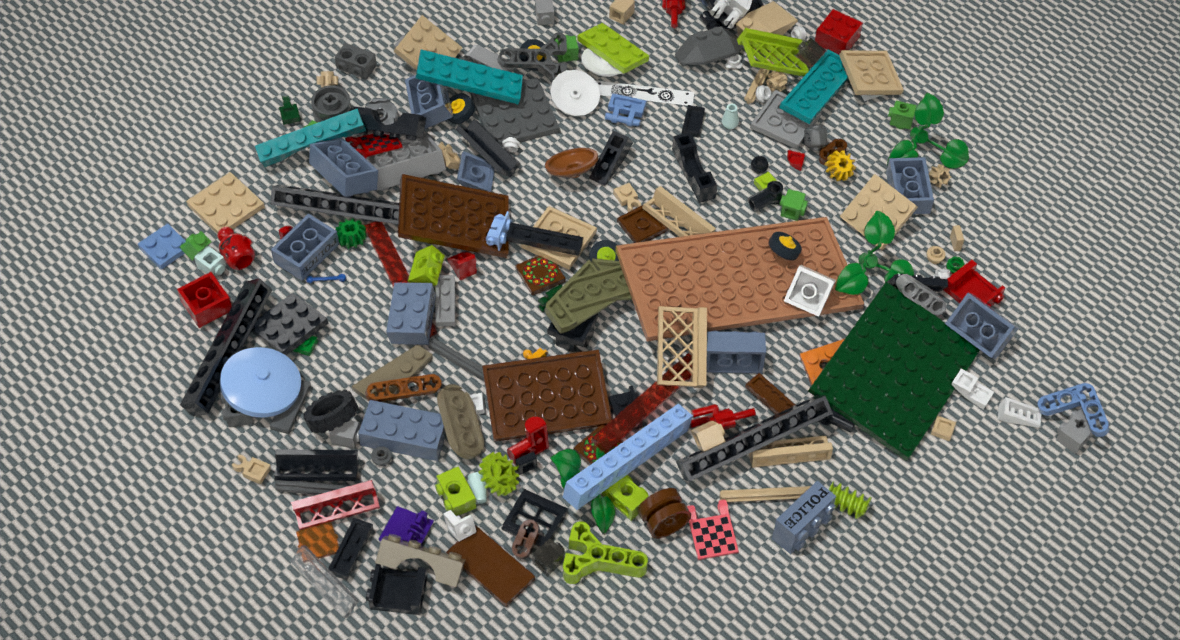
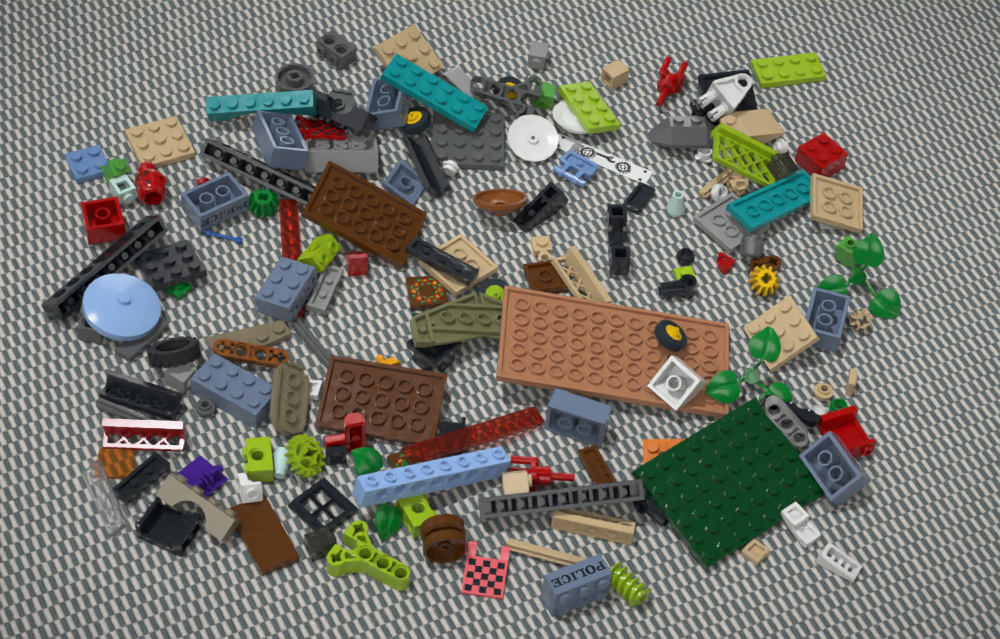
camera: 15 degrees right, 5 degrees down
(254, 470) = (83, 383): tan plate -> none
(289, 112) = (254, 78): dark green plate -> none
(327, 79) = (302, 57): tan gear -> none
(450, 158) = (385, 160): tan plate -> none
(501, 225) = (403, 238): light blue hinge -> none
(521, 537) = (305, 521): reddish brown beam -> none
(698, 350) = (542, 400): tan fence -> none
(793, 205) = (701, 303): bright green brick -> none
(1076, 431) = (890, 595): light grey brick -> none
(1078, 399) = (900, 566): medium blue beam -> none

